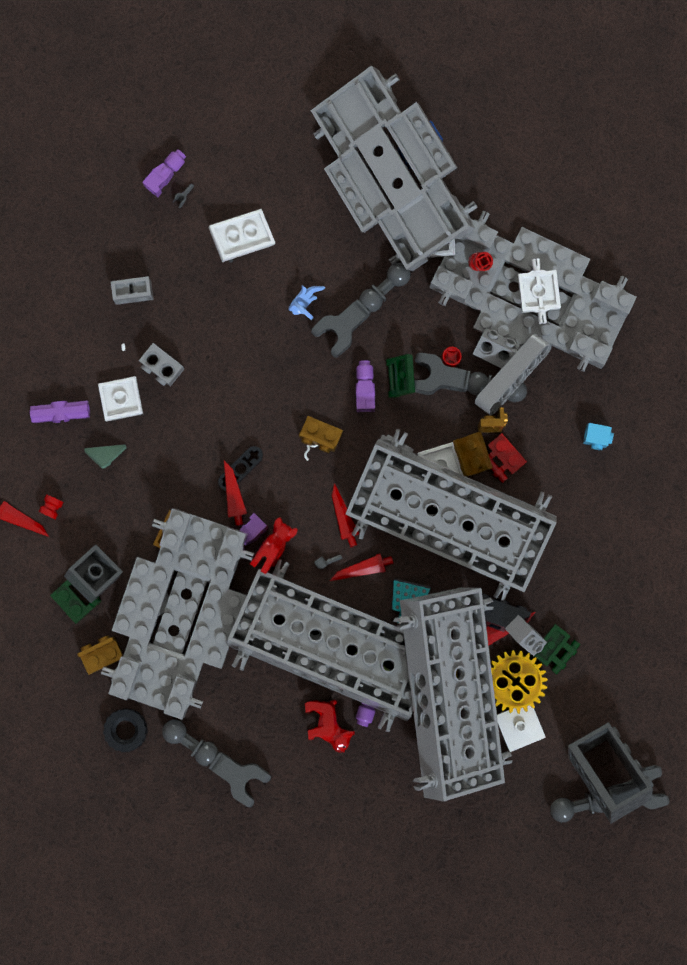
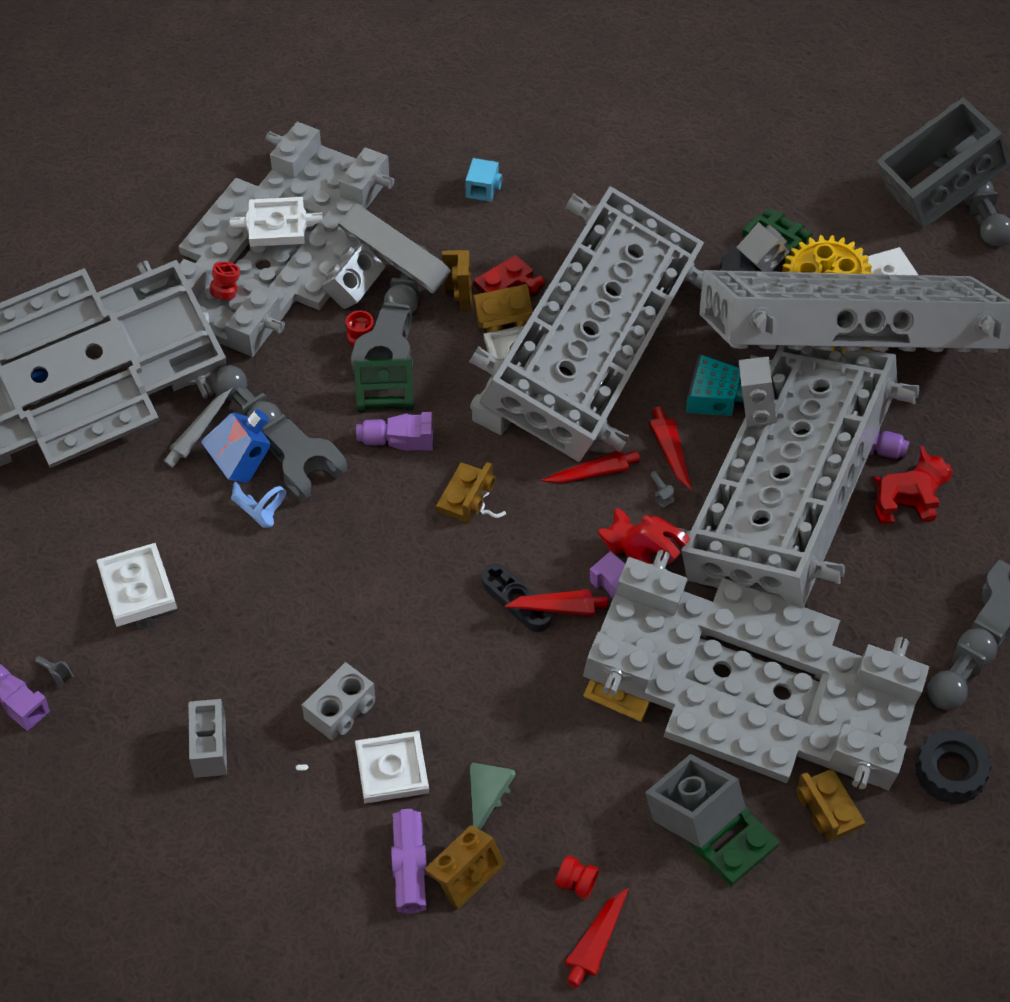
camera: 90 degrees left, 30 degrees down
(55, 442) = (466, 865): none -> pearl gold bracket
(344, 285) = (238, 444): none -> blue torso
(353, 252) = (187, 440): none -> light grey bar
(371, 620) = (757, 391): none -> light grey brick

